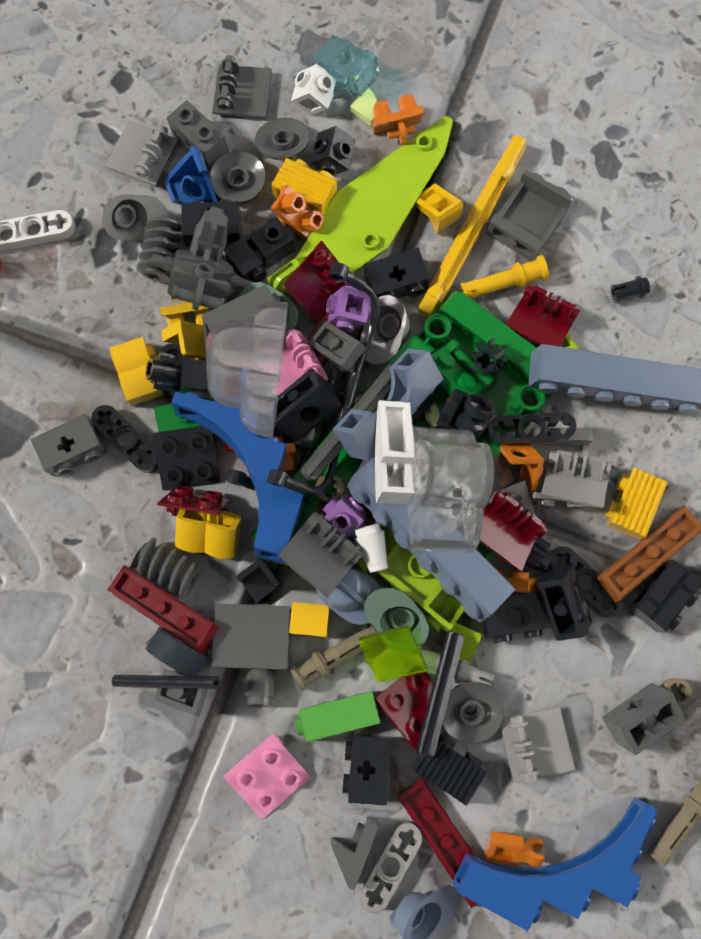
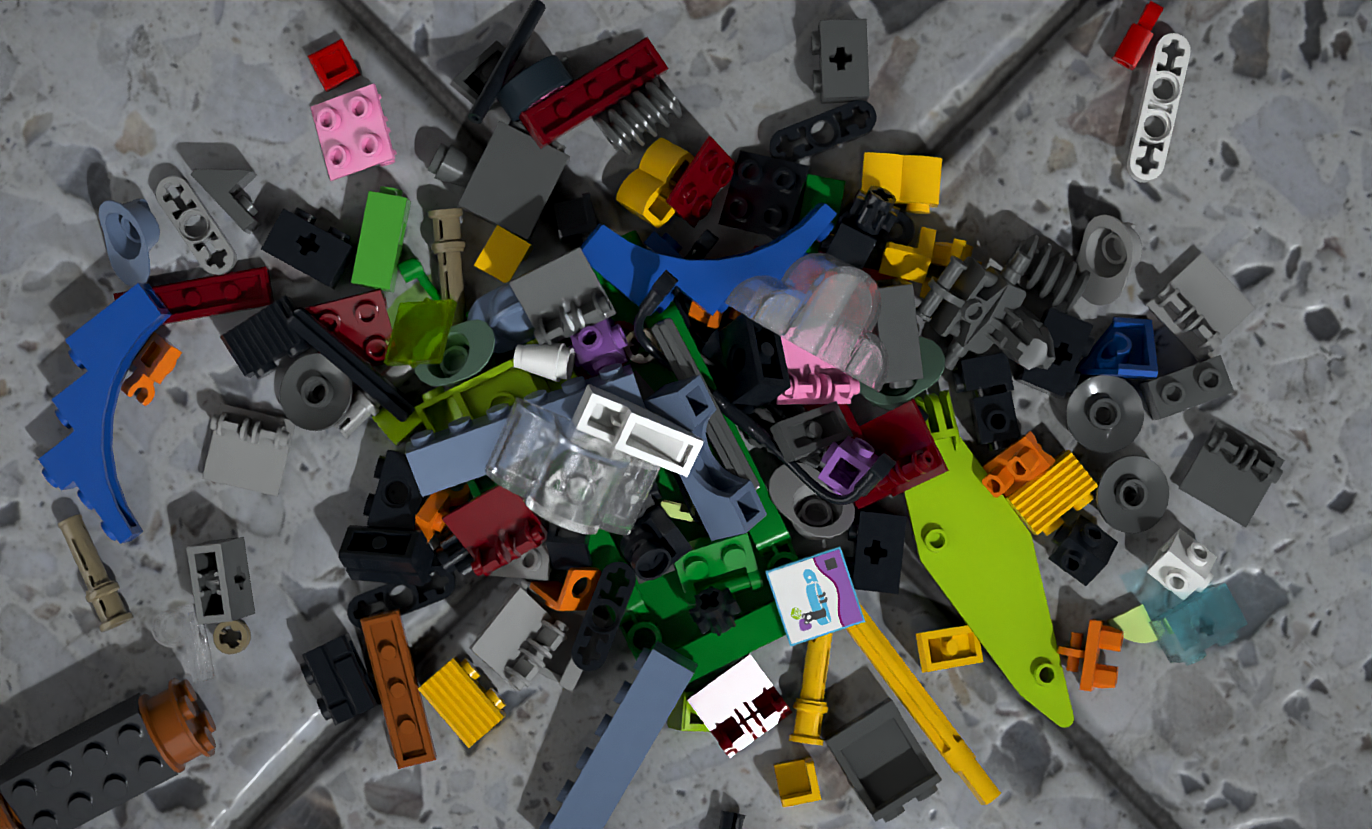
camera: 110 degrees right, 10 degrees up
(223, 815) = (334, 65): none -> red tile
(251, 509) = (663, 245): none -> blue plate
(349, 683) = (413, 269): none -> green hand
(446, 297) = (815, 596): none -> tile
(573, 260) = (797, 781): none -> yellow panel

